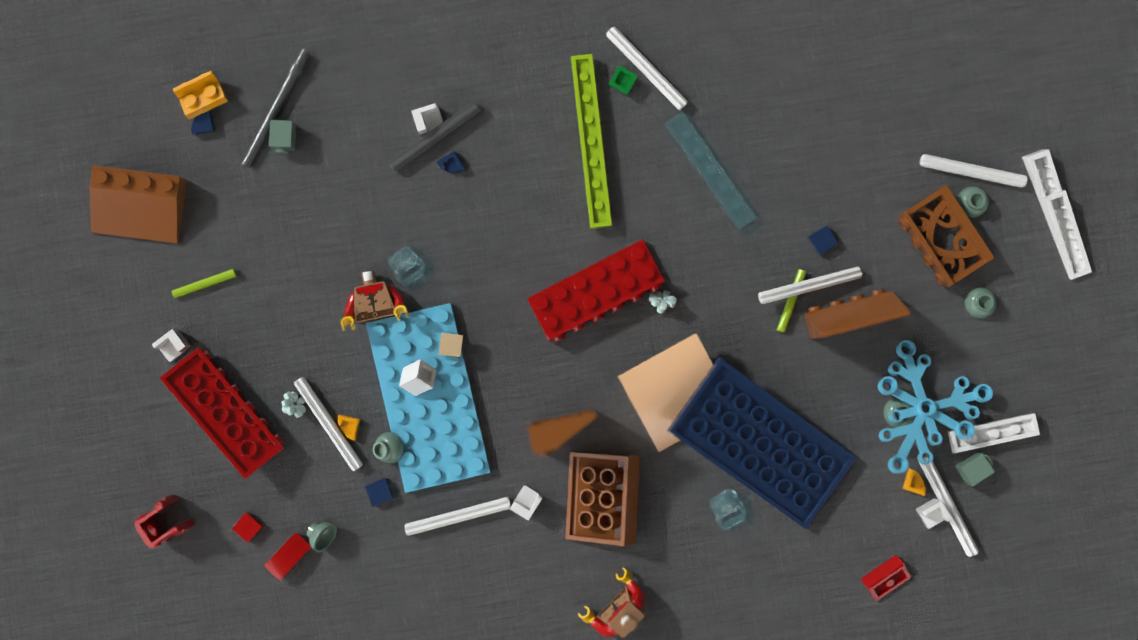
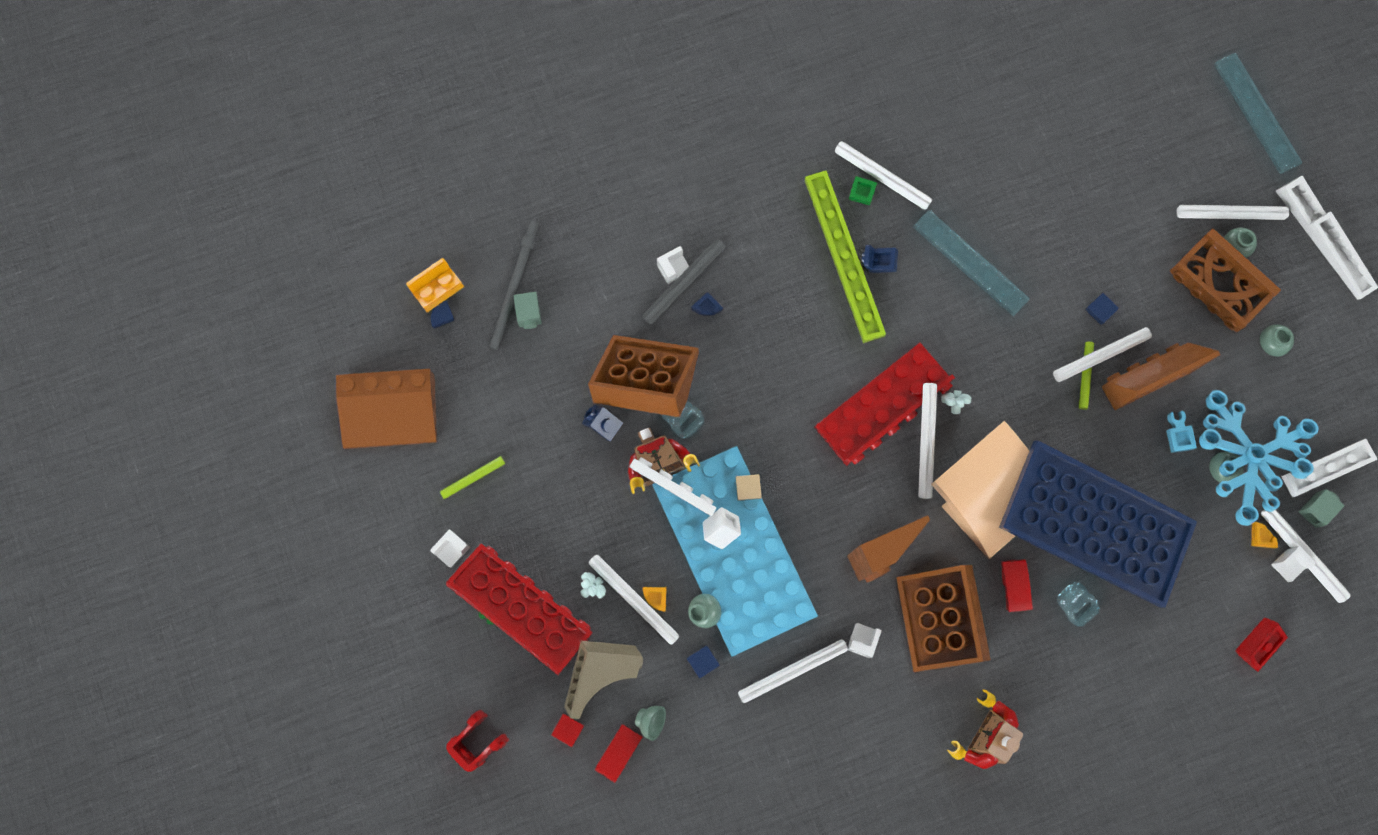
camera: 15 degrees left, 10 degrees down
(282, 479) = (595, 668): none -> dark tan arch
(331, 256) = (602, 422): none -> bracket
(373, 325) = (664, 480): none -> white plate
(377, 221) = (644, 375): none -> dark orange slope
(623, 151) = (880, 259): none -> dark blue bracket
(625, 333) = (927, 440): none -> white axle
(676, 481) = (1017, 585): none -> red slope
(863, 377) = (1180, 436): none -> medium azure plate
(1026, 76) = (1258, 113): none -> clear light blue tile

